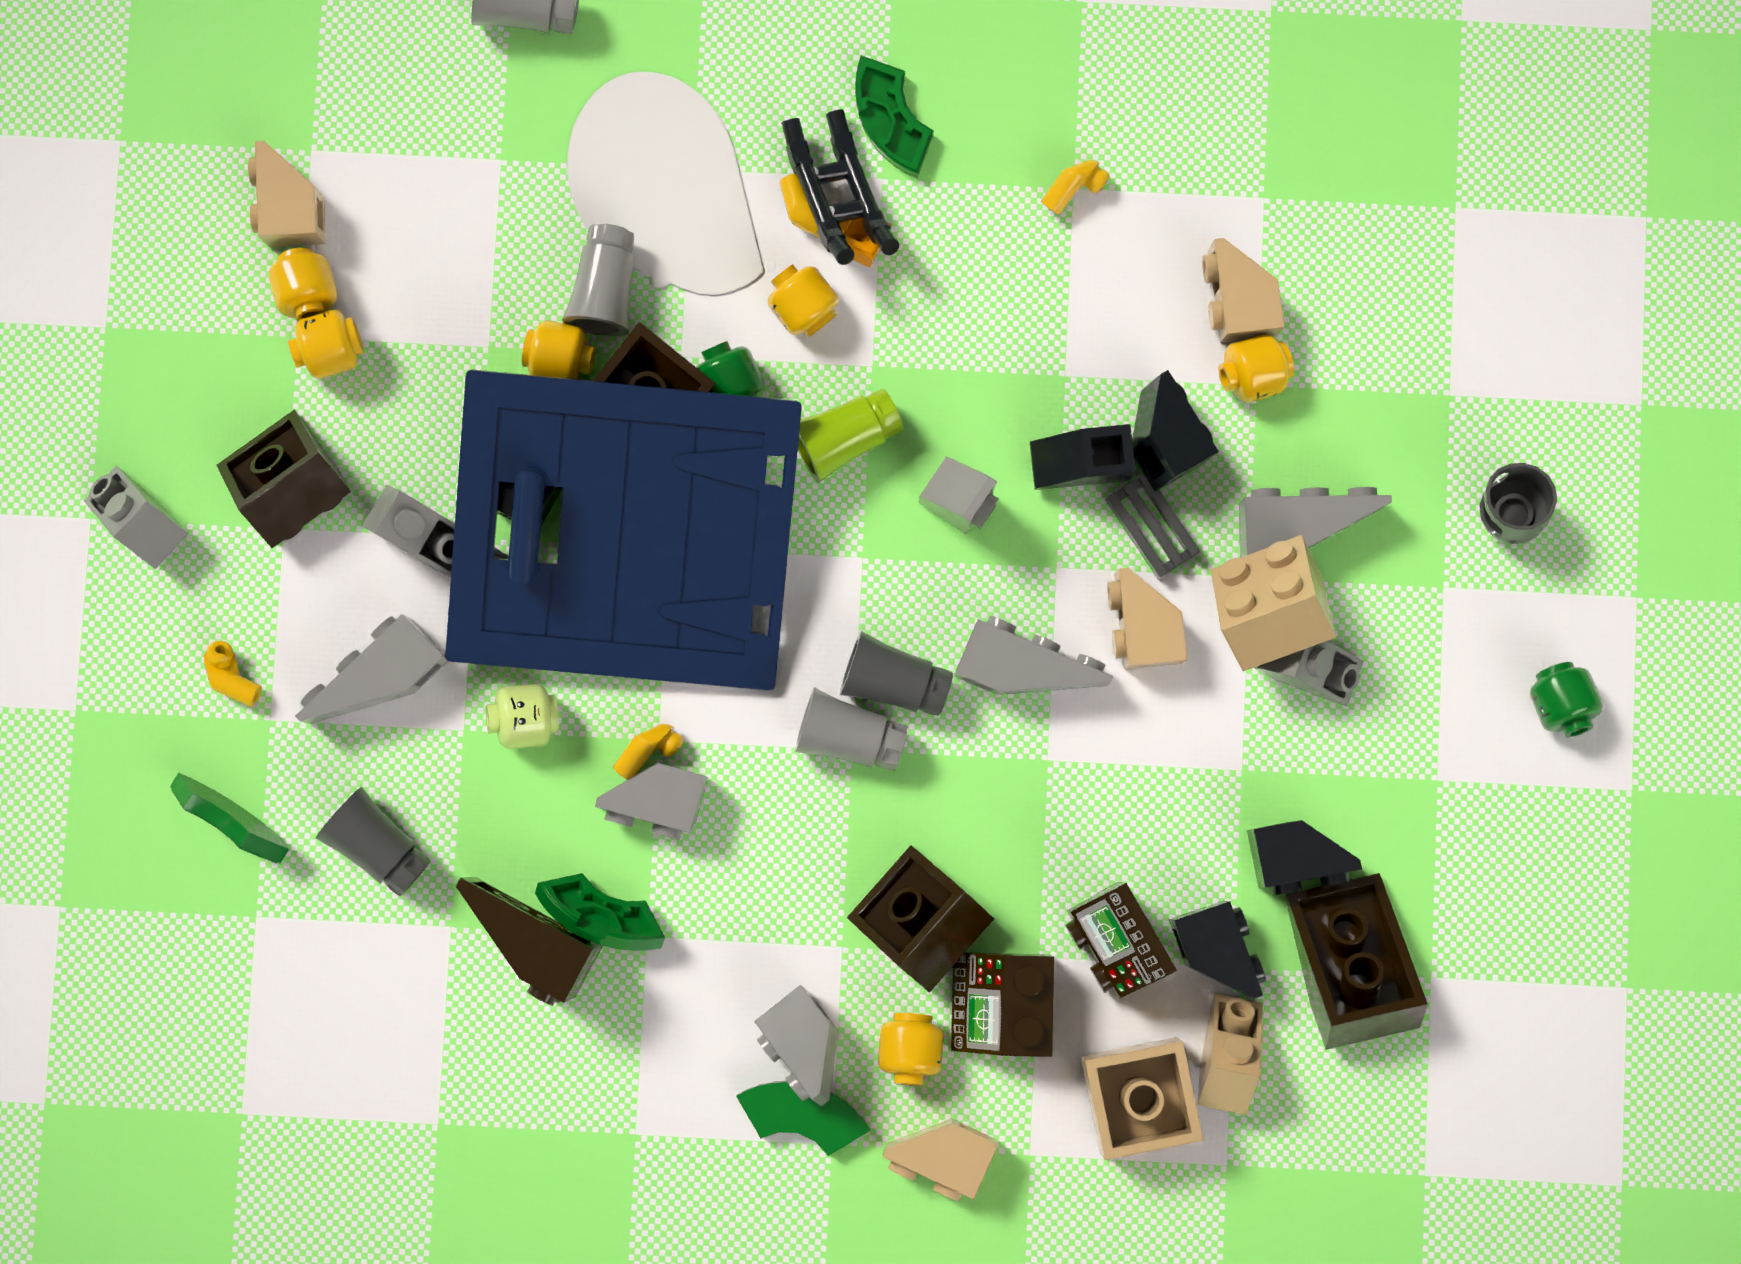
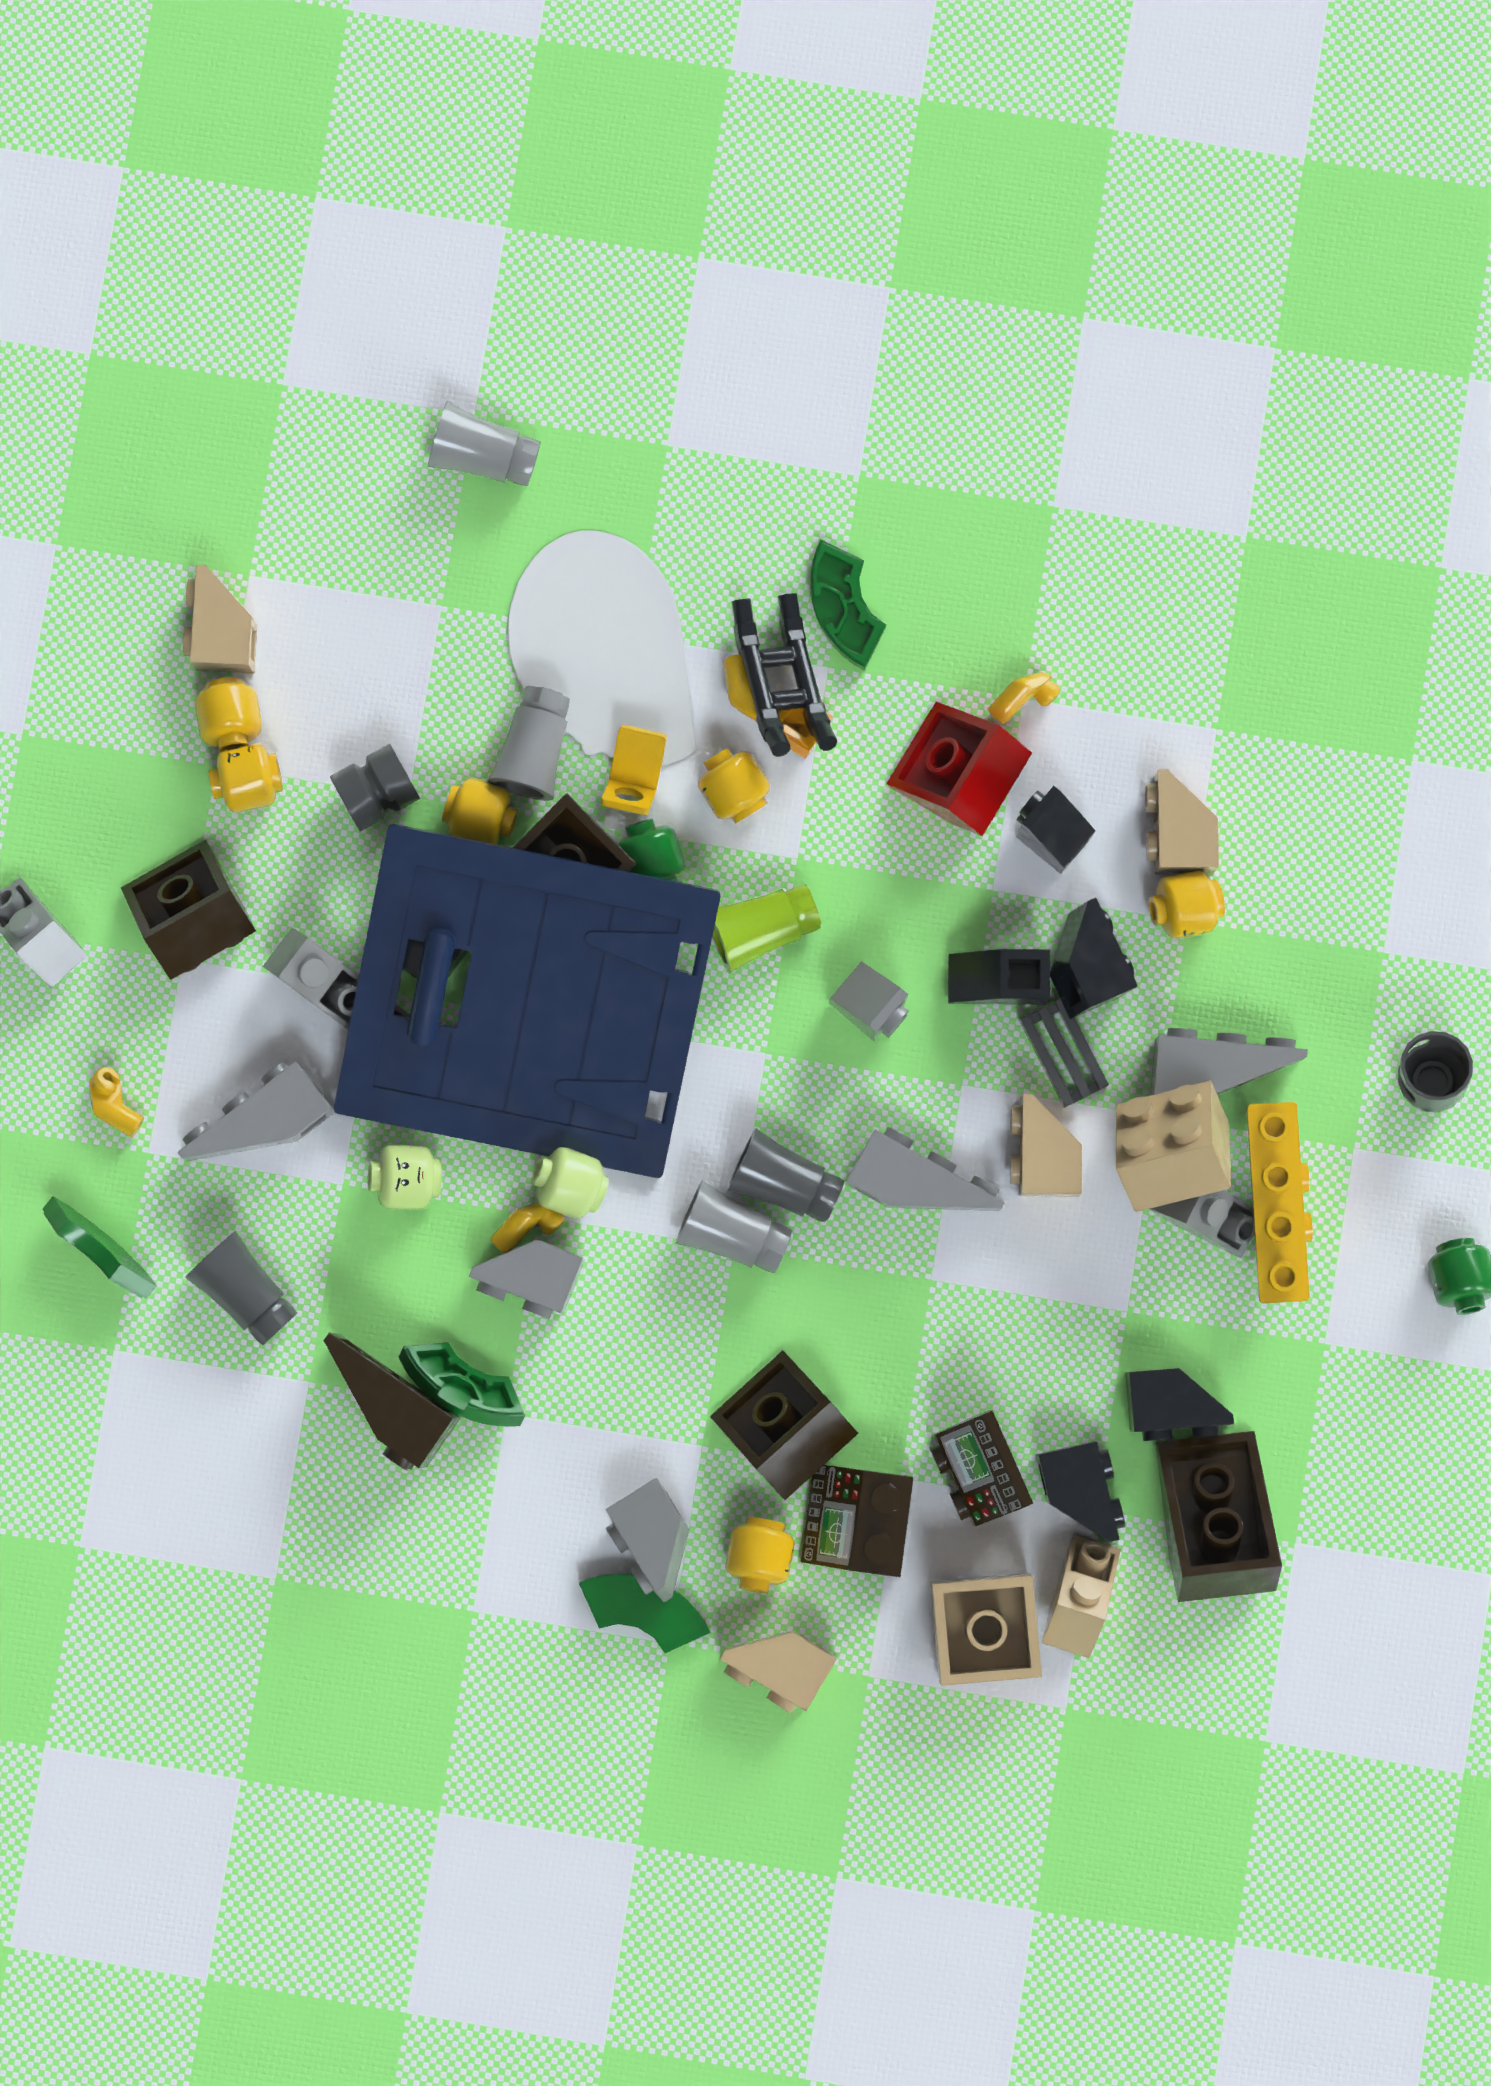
camera: 10 degrees right, 0 degrees up
(452, 339) = (374, 787): none -> dark grey wheel
(684, 704) = (569, 1183): none -> yellowish green head
(705, 294) = (635, 769): none -> yellow bracket
(1021, 259) = (960, 767): none -> red slope
(1119, 307) = (1053, 828): none -> black slope
(1380, 647) = (1278, 1202): none -> yellow bracket

